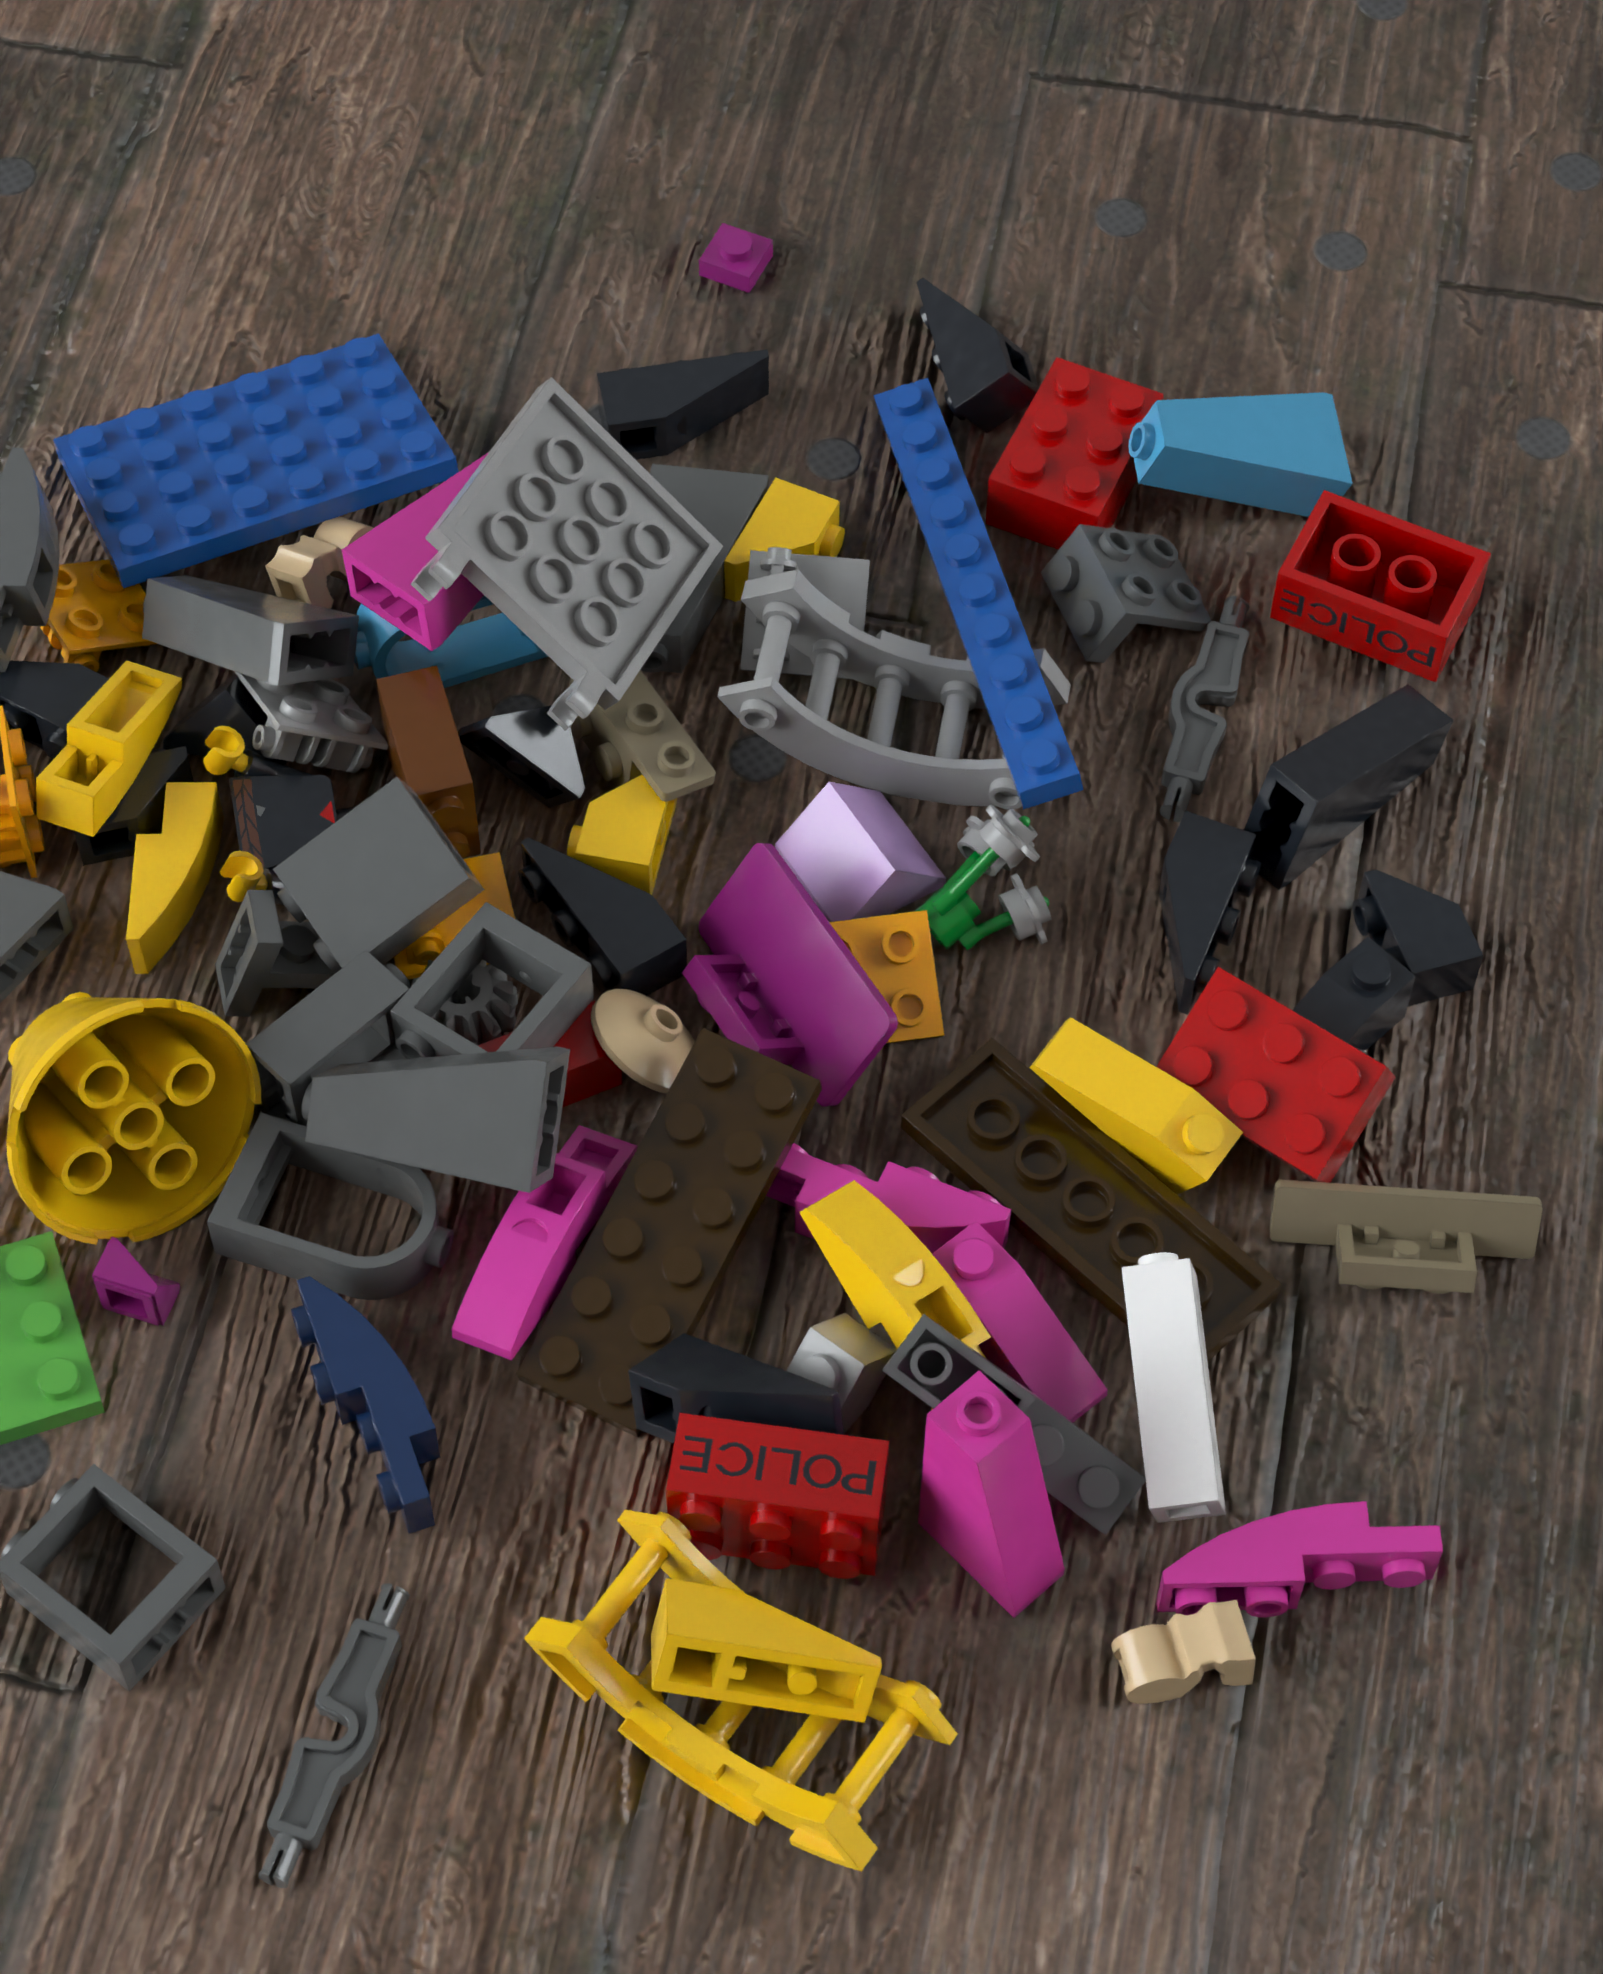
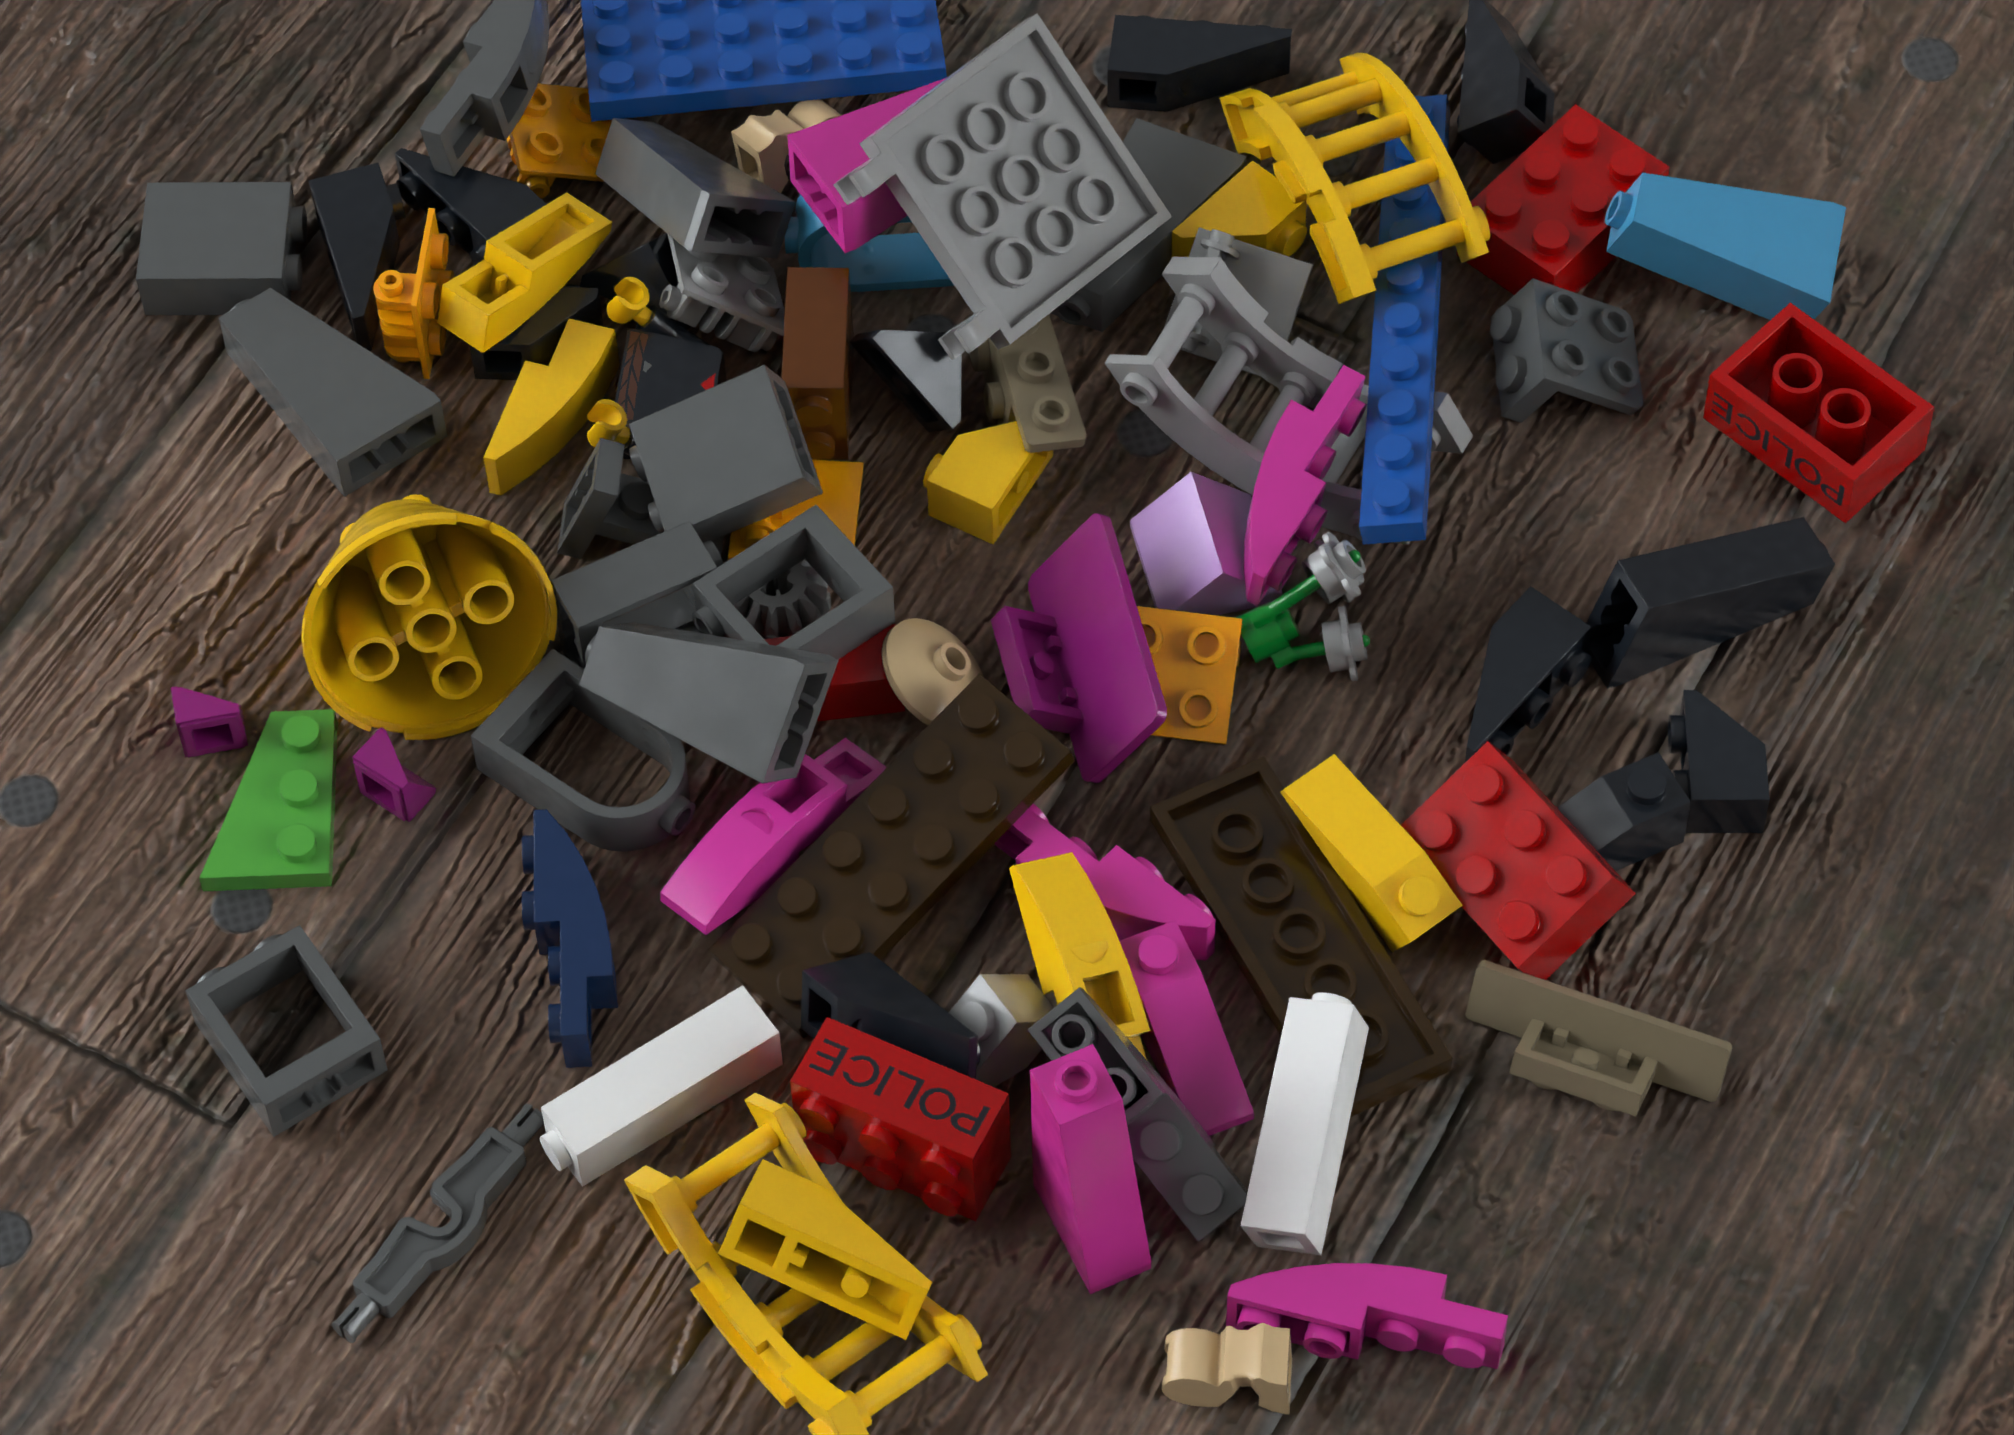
camera: 20 degrees right, 0 degrees up
(516, 1529) = (660, 1086): none -> white brick
(608, 920) = (944, 555): black slope -> none
(828, 466) = (1271, 129): none -> yellow fence
(931, 774) = (1292, 484): none -> dark pink slope
(1195, 730) = (1584, 512): dark grey piece -> none

